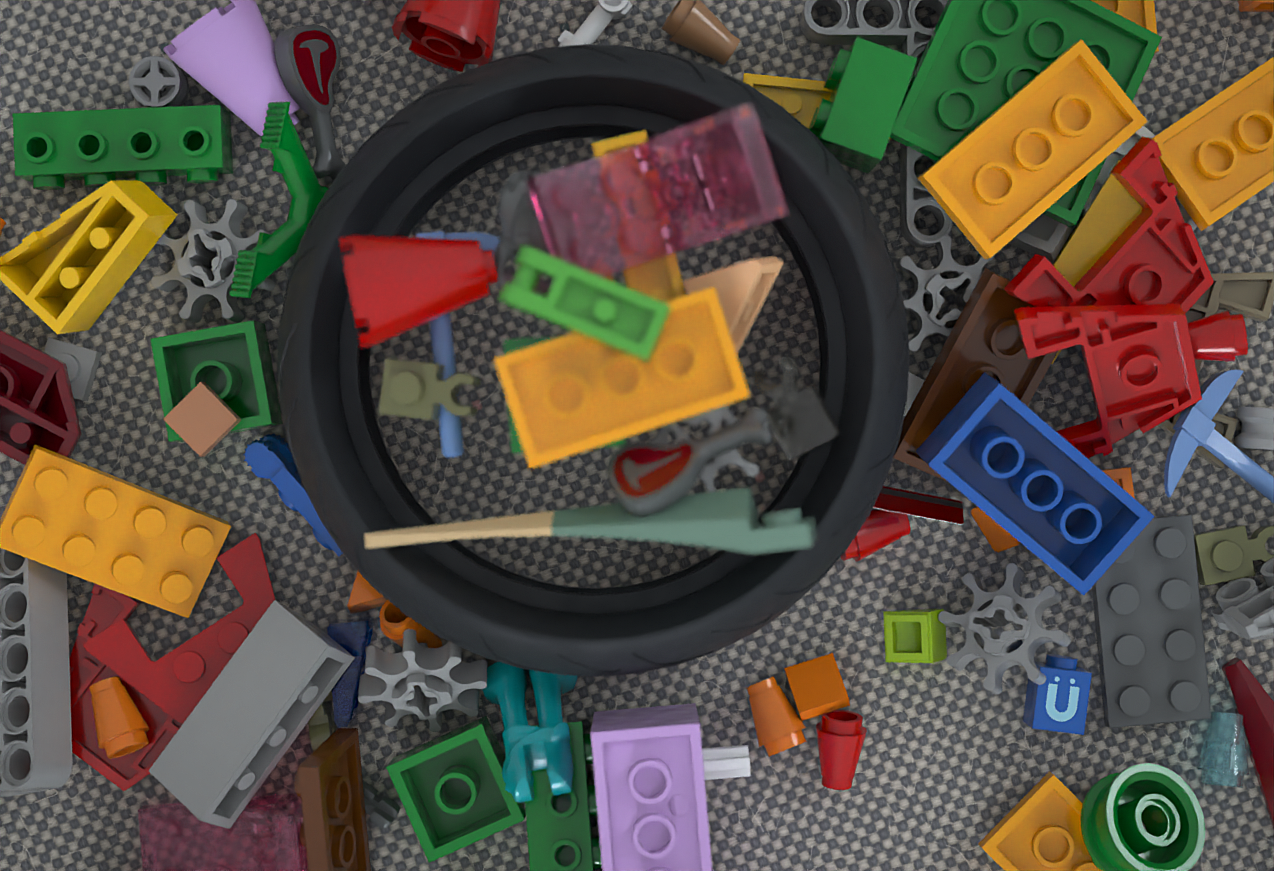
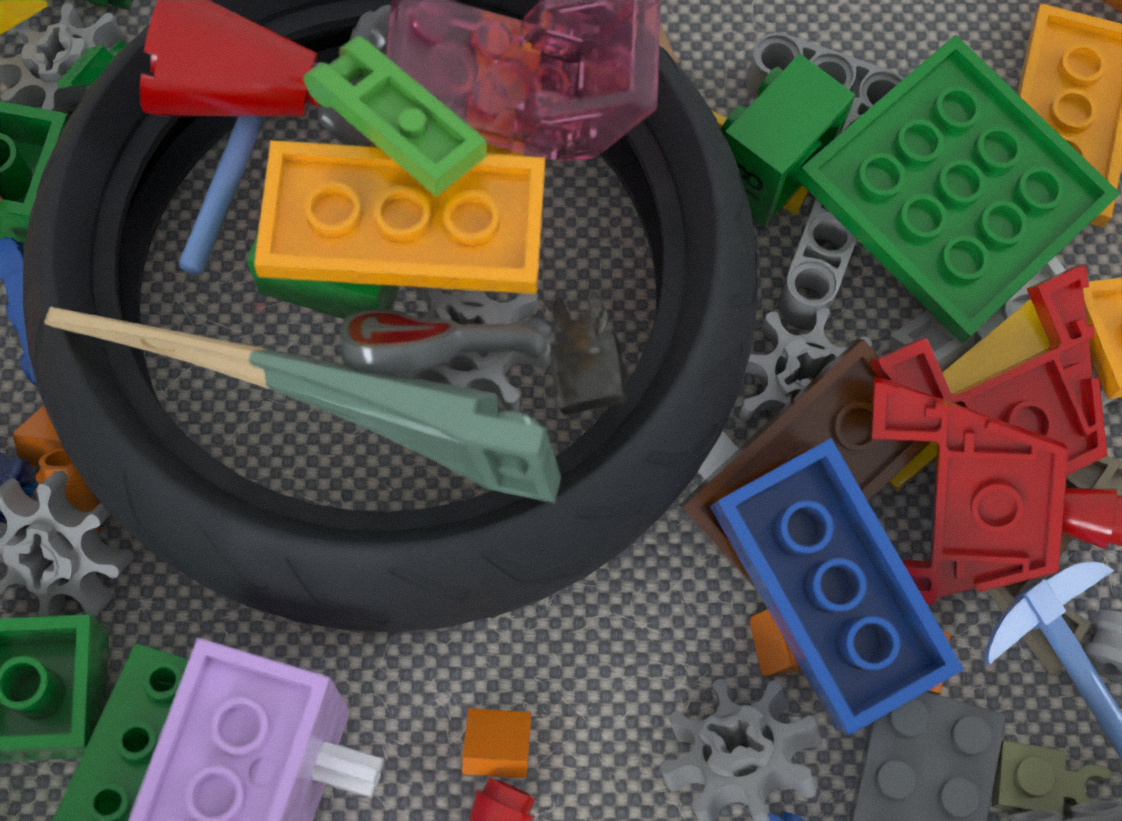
camera: 10 degrees right, 20 degrees down
(419, 389) = (185, 182): olive plate -> none
(529, 746) = (147, 663): teal piece -> none
(740, 292) = (576, 209): light nougat slope -> none
(774, 717) = (433, 762): orange cone -> none
(877, 532) = (627, 590): red cone -> none
(914, 636) = (634, 733): lime slope -> none
(920, 505) = (689, 580): red sticker -> none
(1032, 149) = (947, 235): light orange plate -> none

